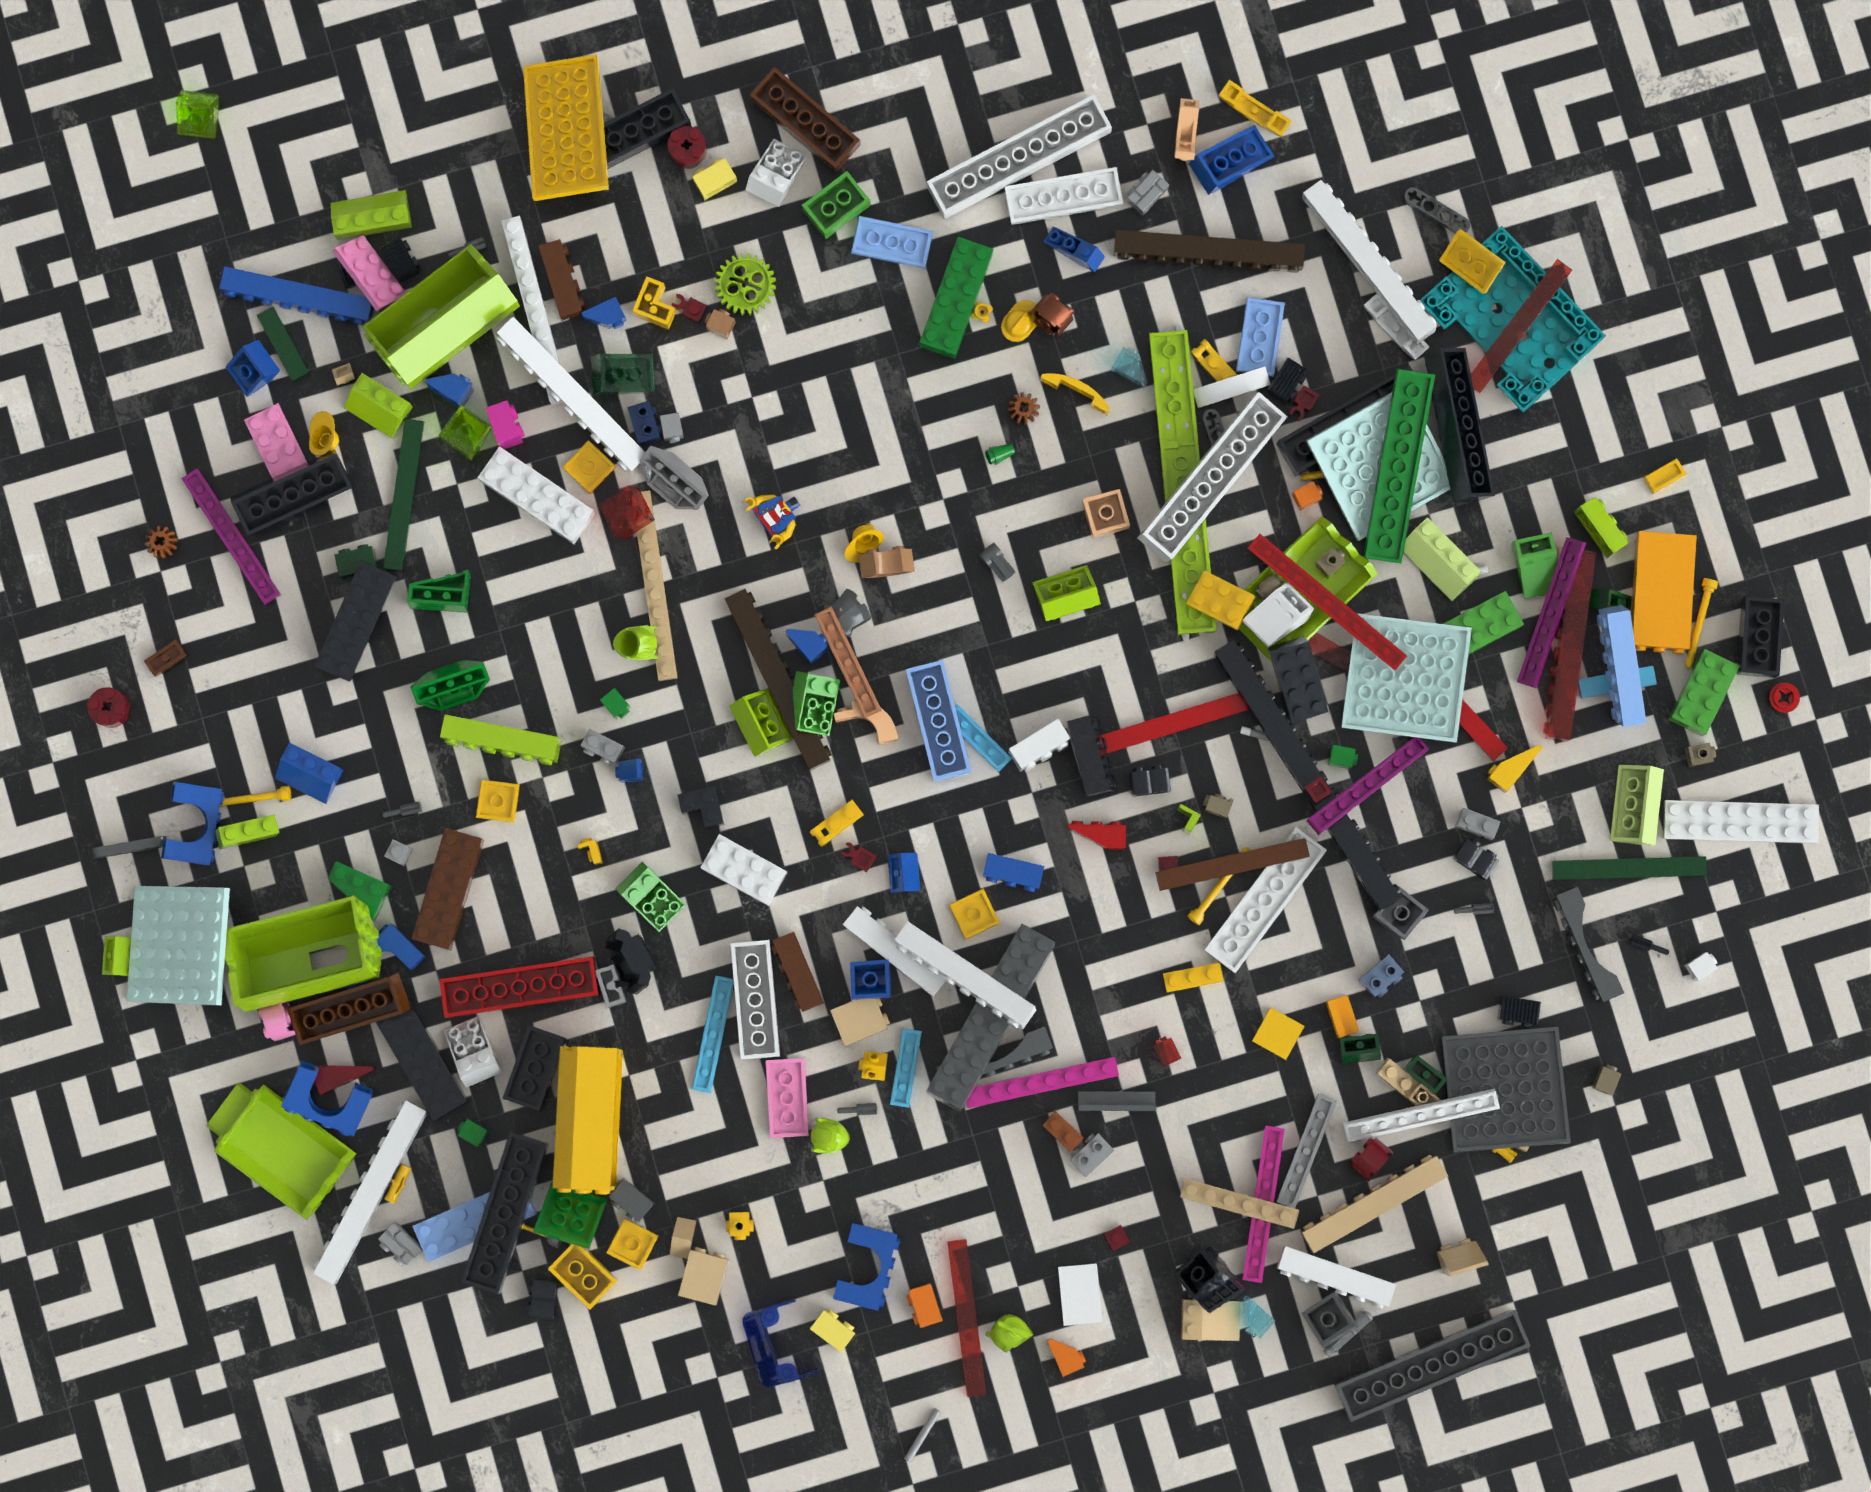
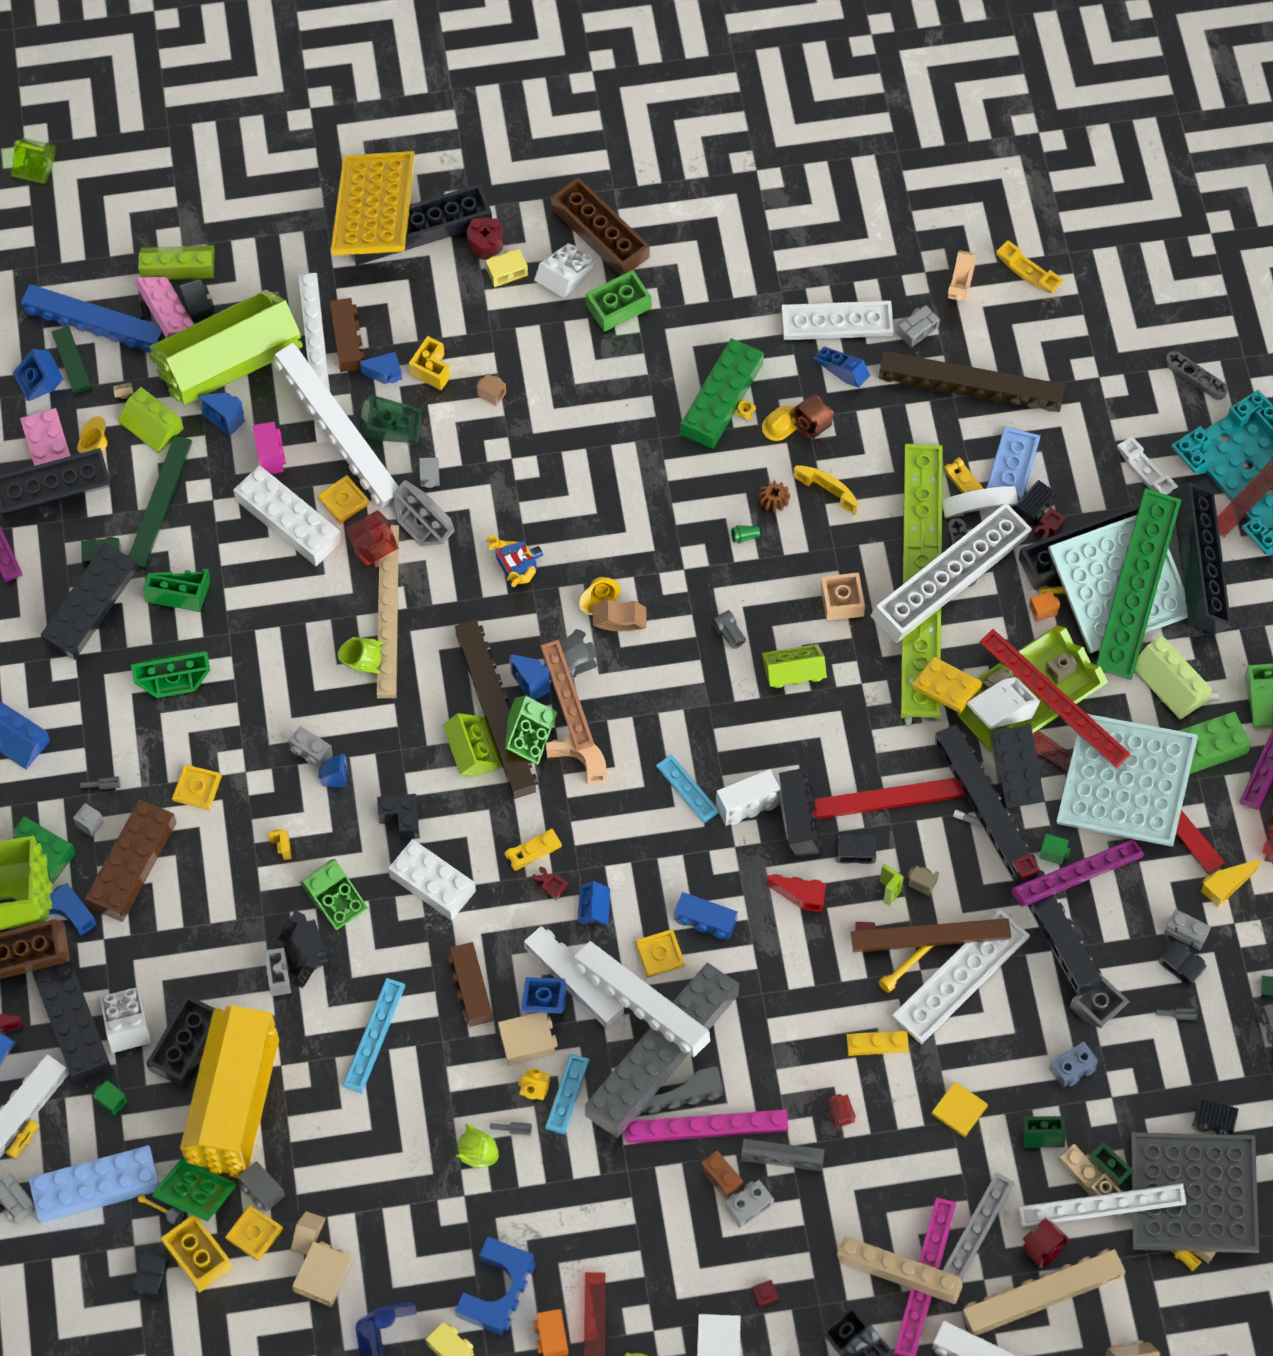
camera: 10 degrees right, 20 degrees down
(465, 432) = (229, 451): clear neon green slope -> none
(500, 738) = (210, 725): lime brick -> none
(504, 1212) = (126, 1171): black brick -> none
(519, 987) = (184, 961): red brick -> none
(615, 704) = (330, 710): green brick -> none
(644, 423) = (403, 464): dark blue brick -> none
(692, 308) = (467, 376): dark red plate -> none
(738, 299) = (521, 359): lime gear -> none
(742, 1217) = (369, 1224): yellow brick -> none
(755, 1000) = (422, 1004): white brick -> none
(787, 1098) = (440, 1106): bright pink plate -> none
(892, 242) = (667, 341): light blue tile -> none
(938, 721) = (649, 764): light blue brick -> none
(1019, 156) = (798, 280): white brick -> none
(1130, 366) = (882, 472): clear light blue slope -> none
(1230, 159) = (1000, 308): blue slope -> none
(1342, 1016) = (1027, 1098): light orange panel -> none
(1369, 262) = (1127, 407): white brick -> none
(1472, 261) = (1227, 415): yellow plate -> none

